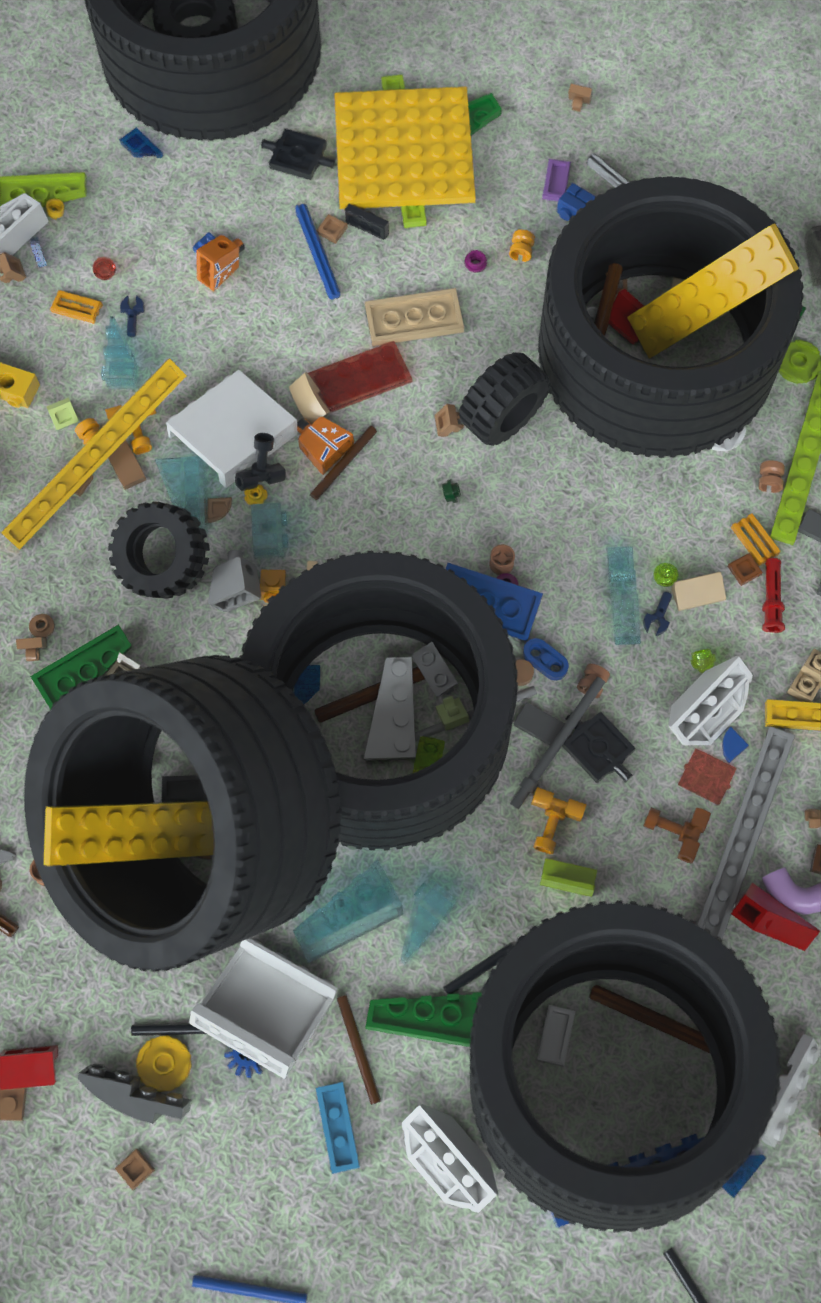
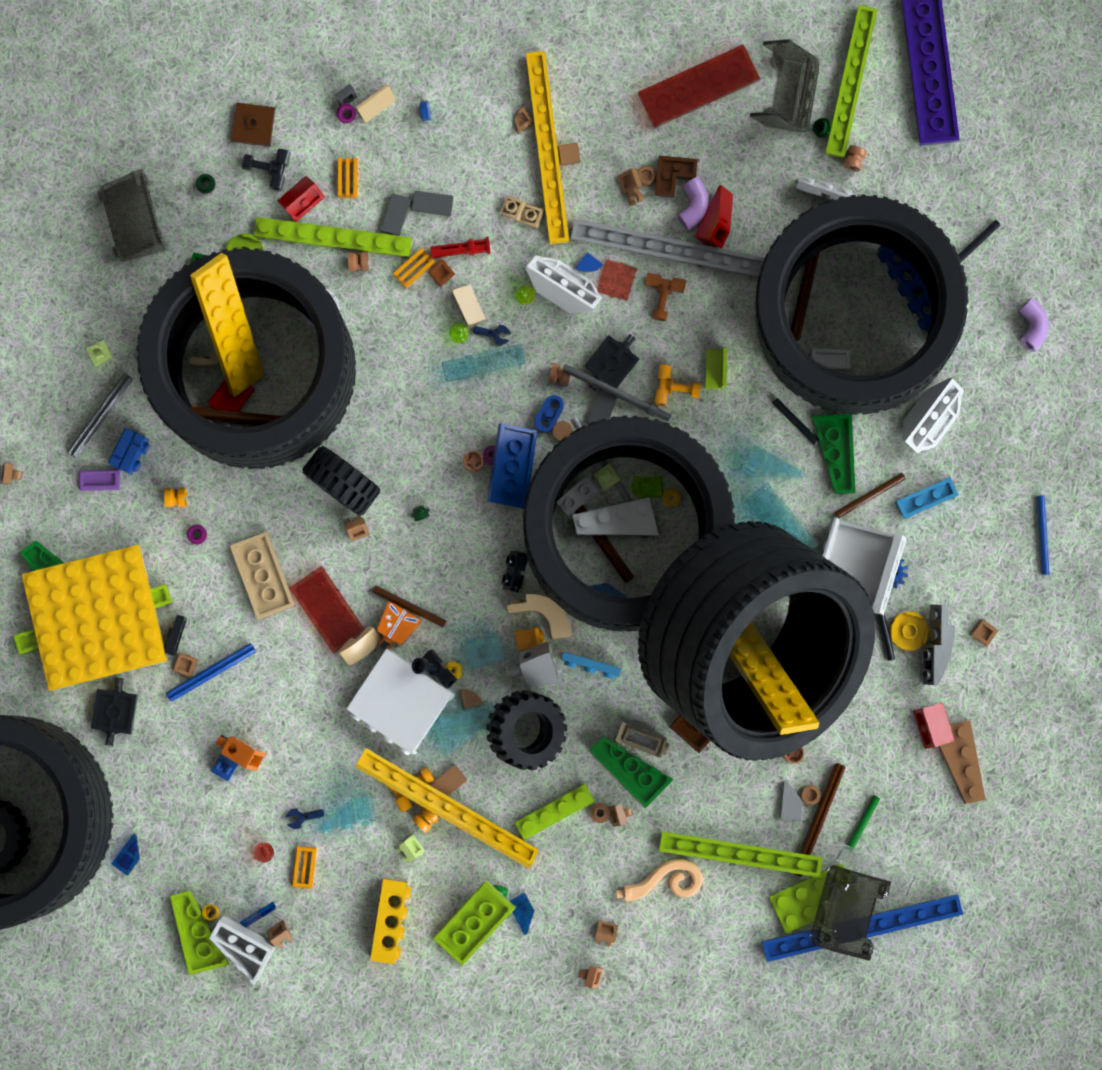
camera: 105 degrees left, 15 degrees up
(58, 576) = (554, 811): none -> lime plate
(232, 629) = (590, 665): none -> dark azure plate

